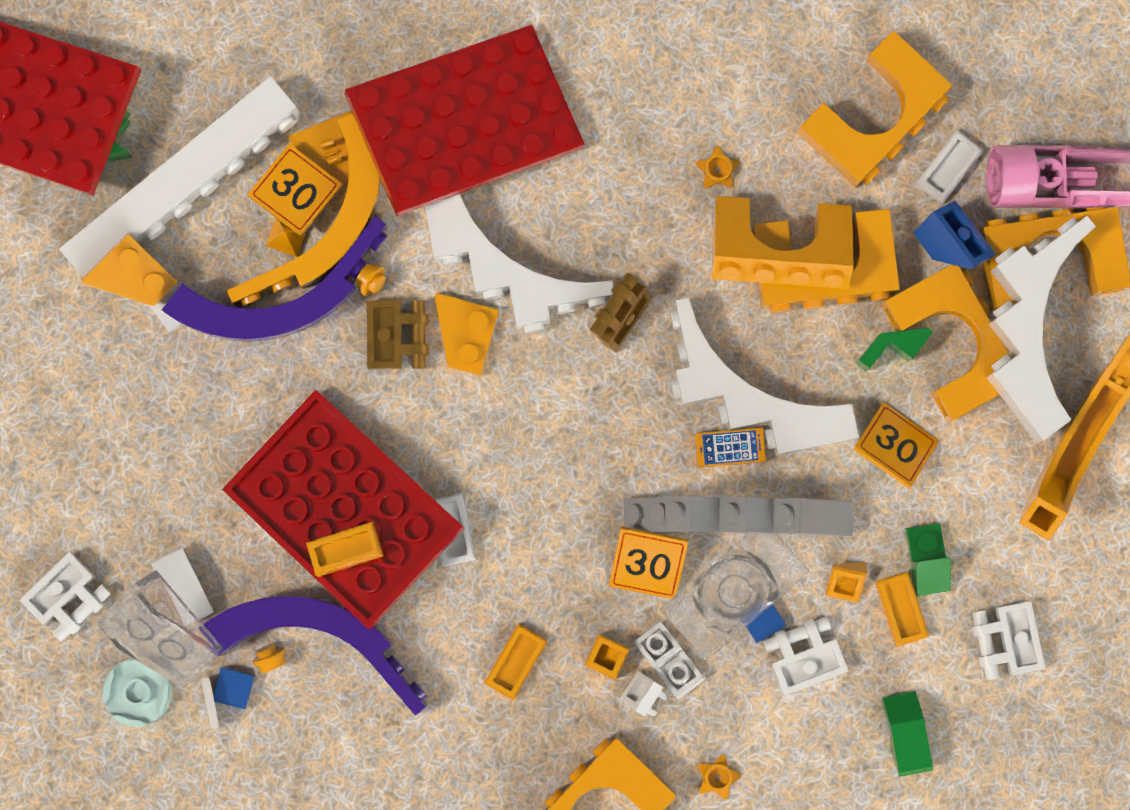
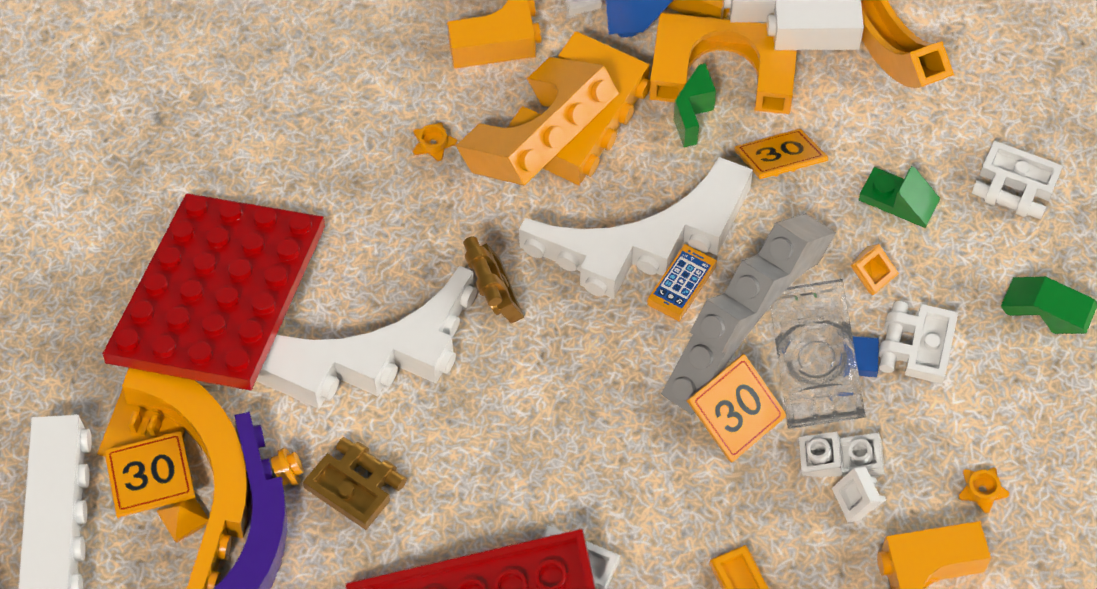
camera: 50 degrees left, 25 degrees down
(465, 332) = (403, 424): light orange wing -> none
(606, 656) = (799, 503): light orange slope -> none
(901, 609) = (929, 244): light orange tile -> none

